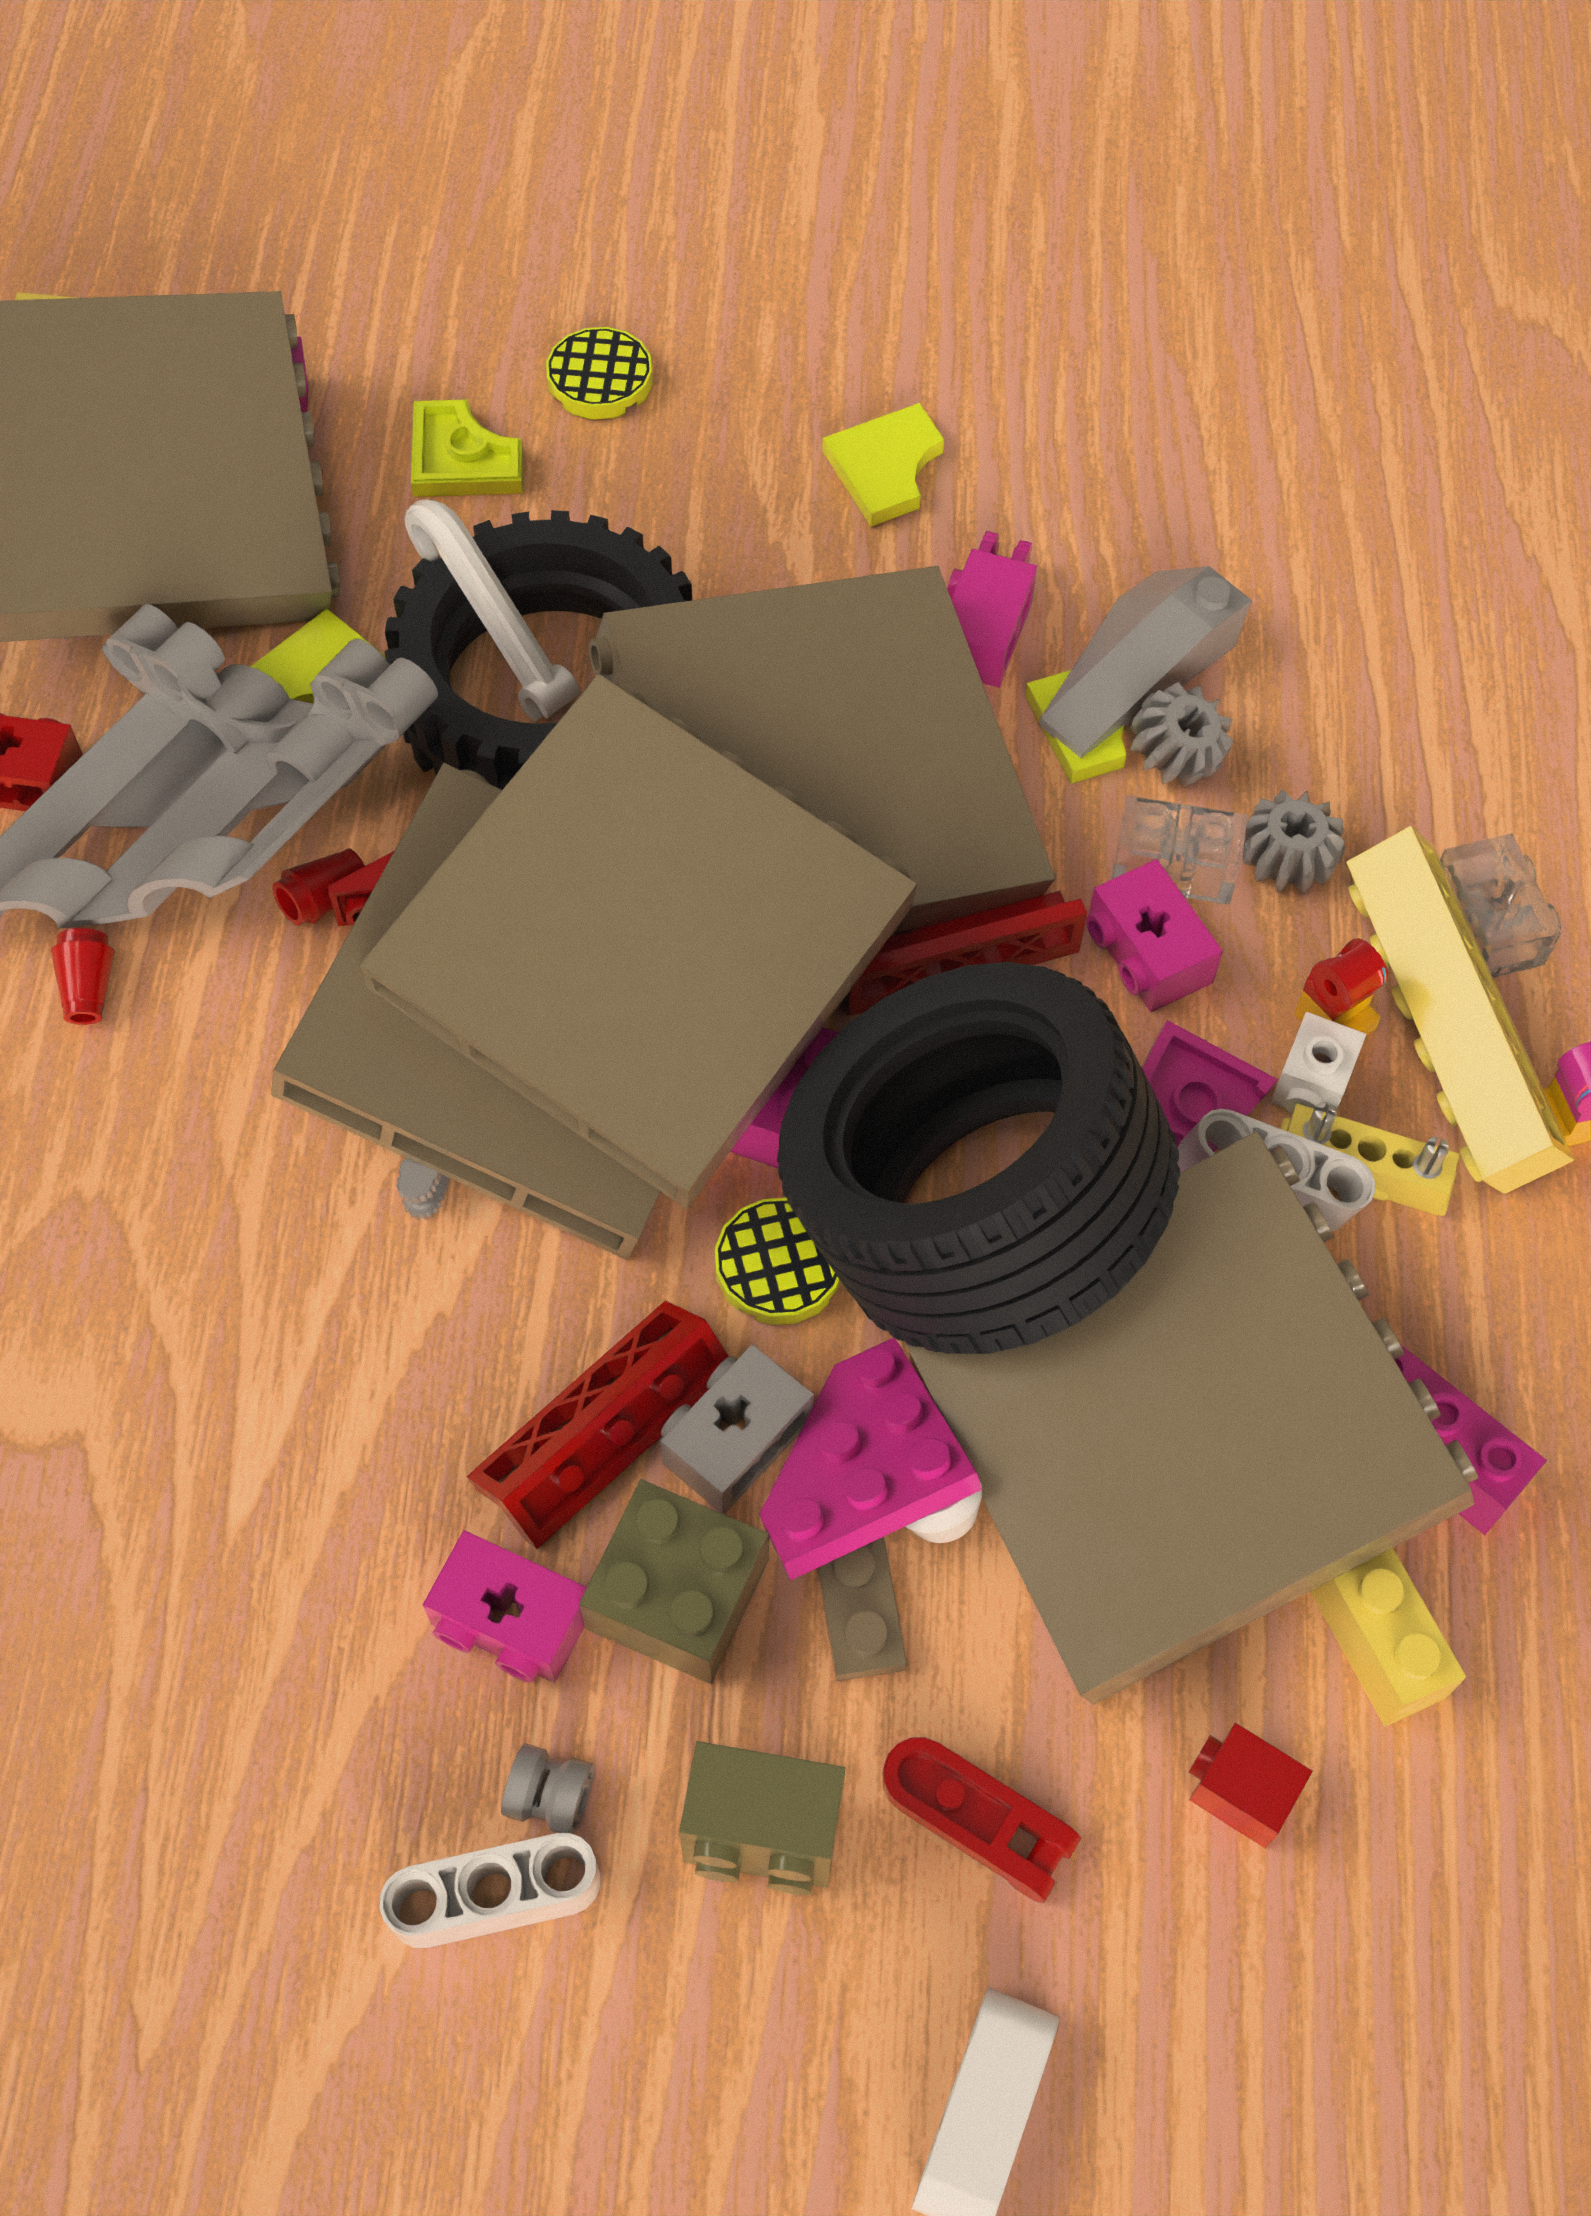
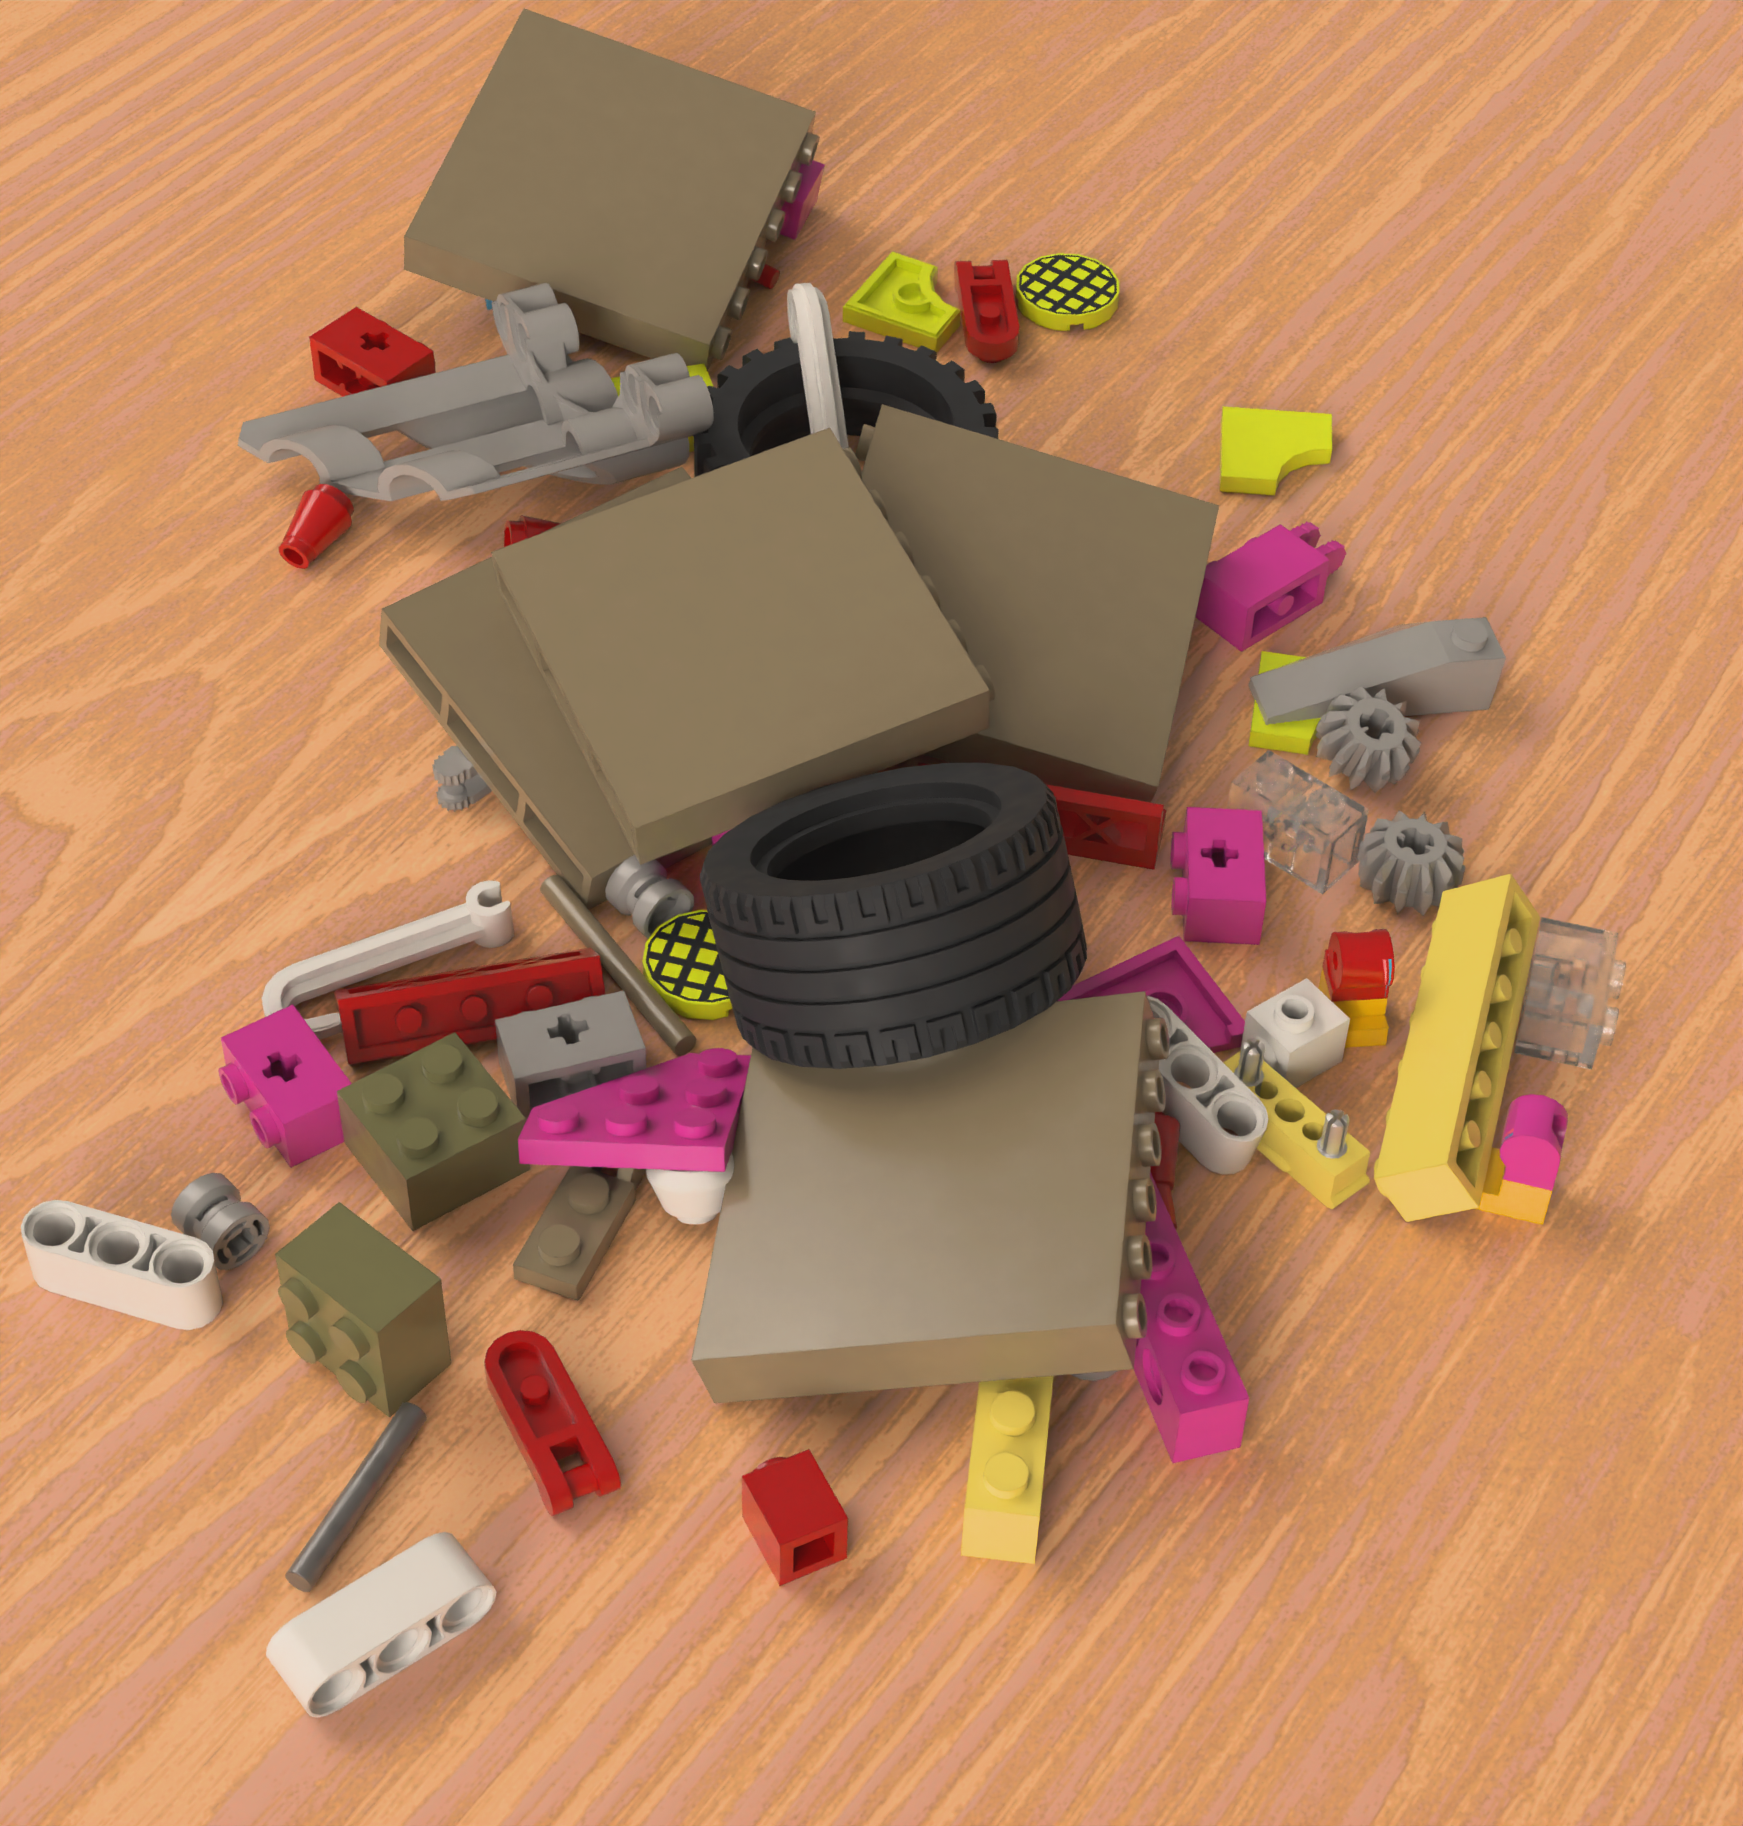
camera: 30 degrees right, 15 degrees down
(482, 1420) = (479, 920): none -> white piece
(544, 425) = (987, 309): none -> red plate
(692, 1228) = (647, 894): none -> light grey wheel
(700, 1303) = (618, 965): none -> dark tan bar
(863, 1992) = (355, 1497): none -> flat silver bar

